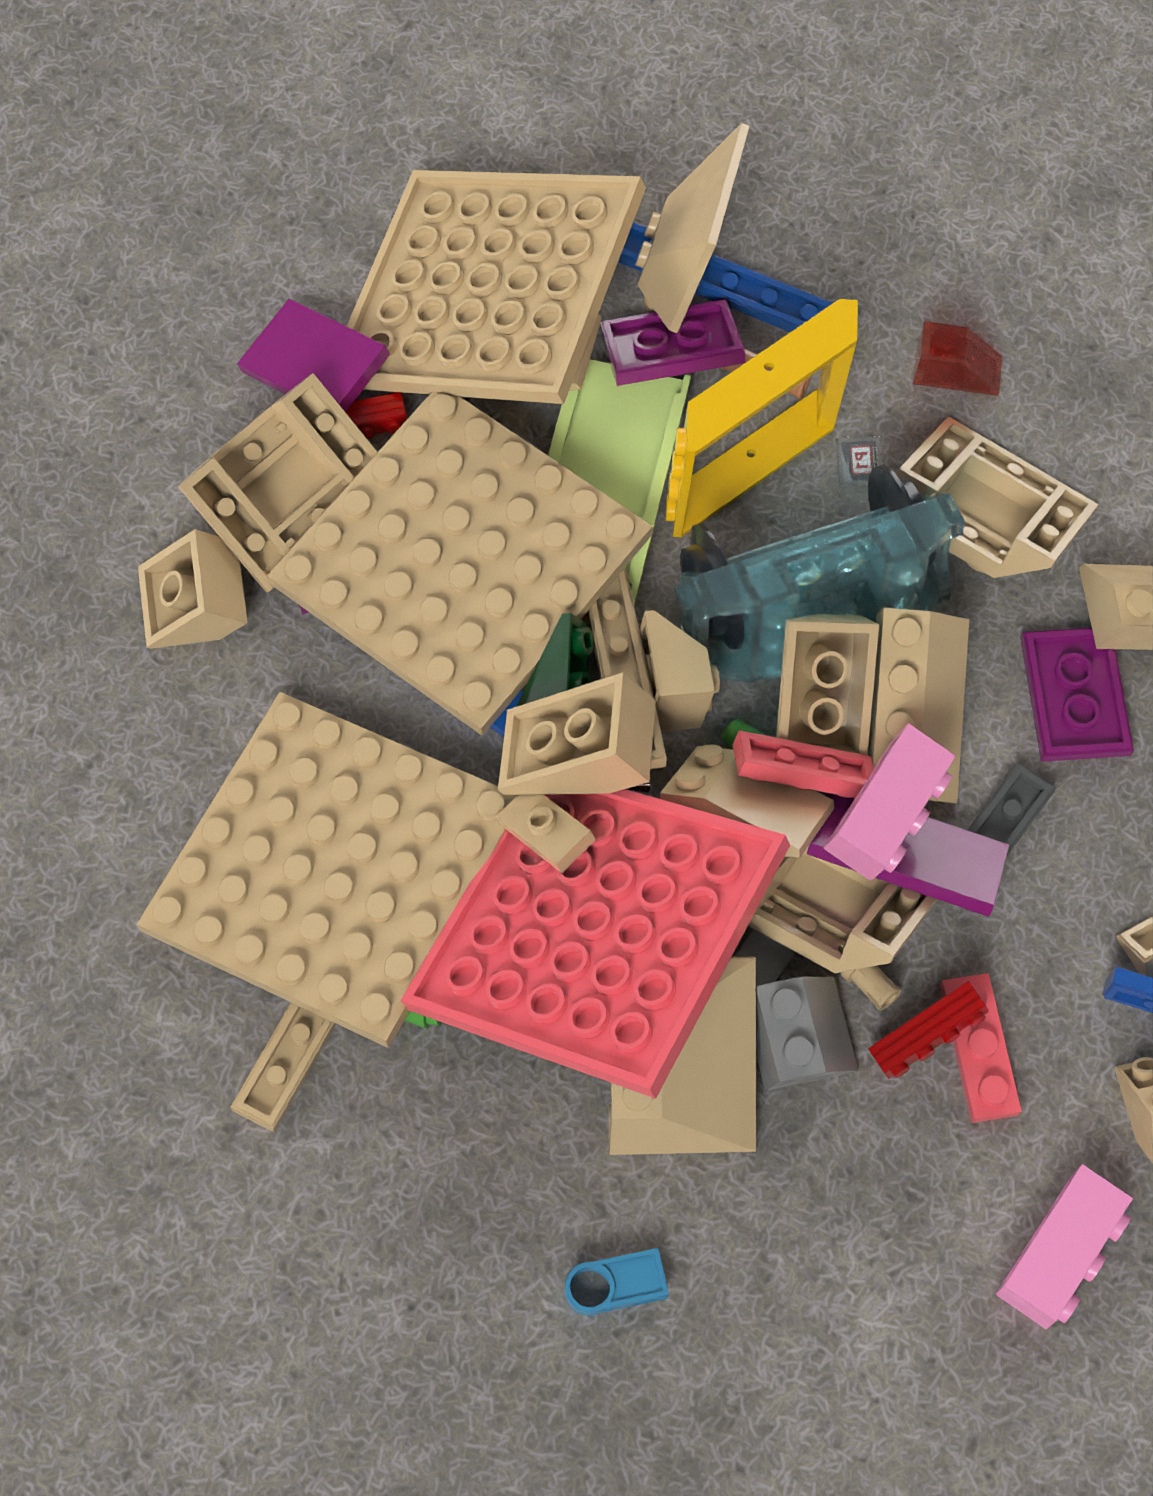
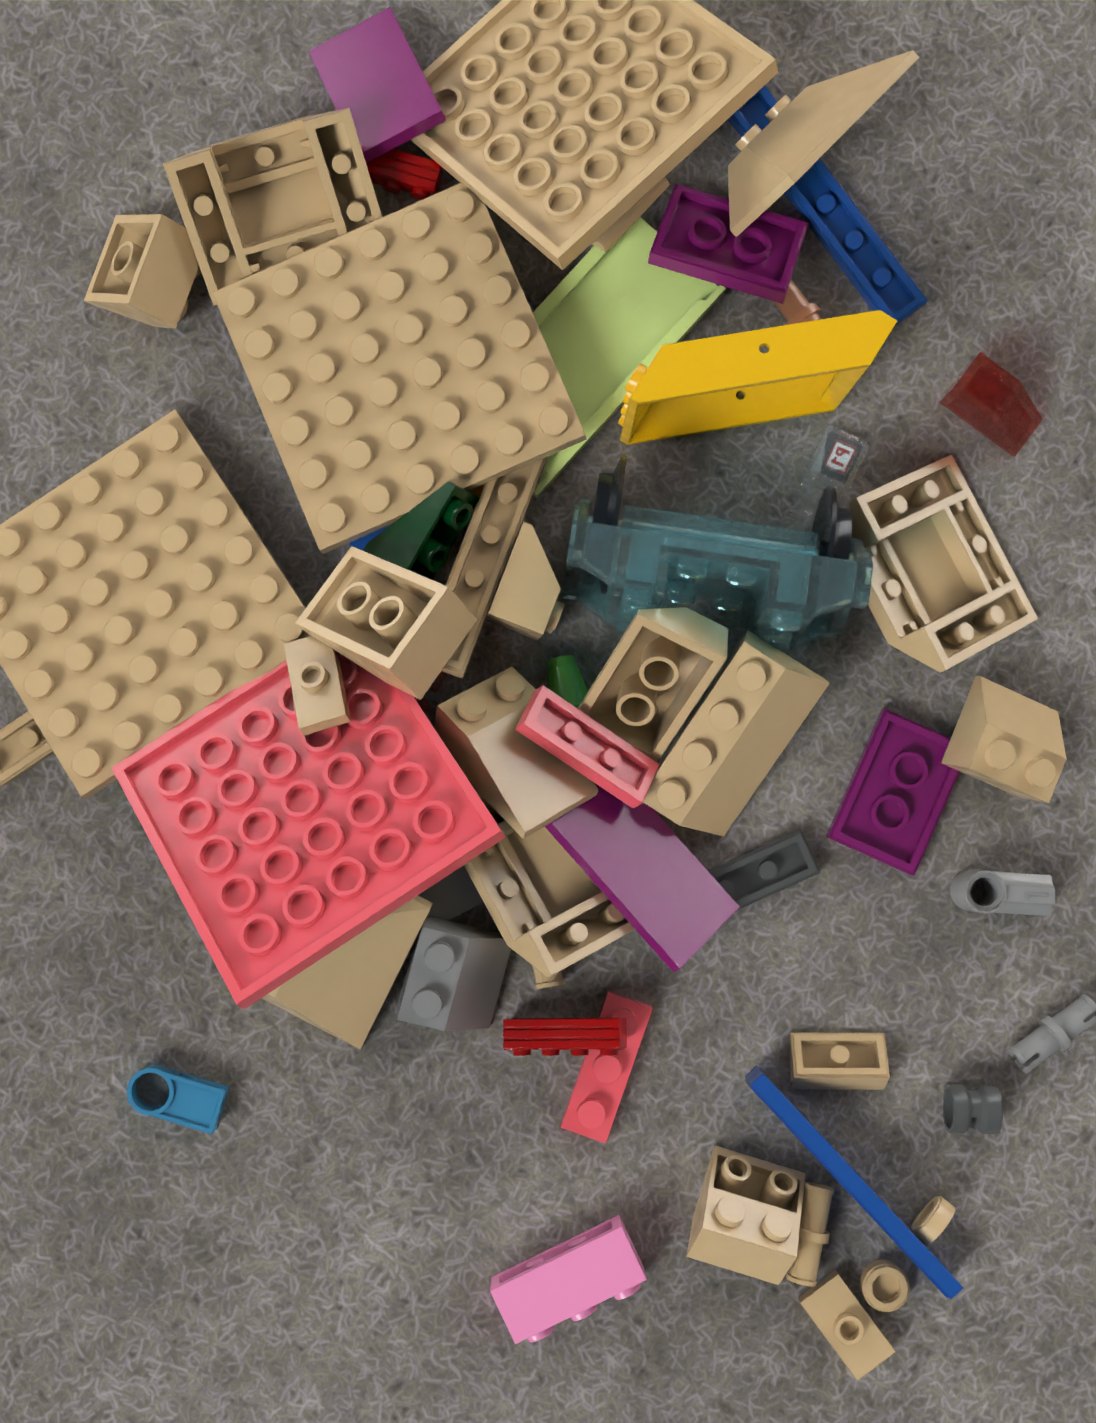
camera: 30 degrees right, 20 degrees up
(891, 803) = (638, 831): bright pink brick -> none

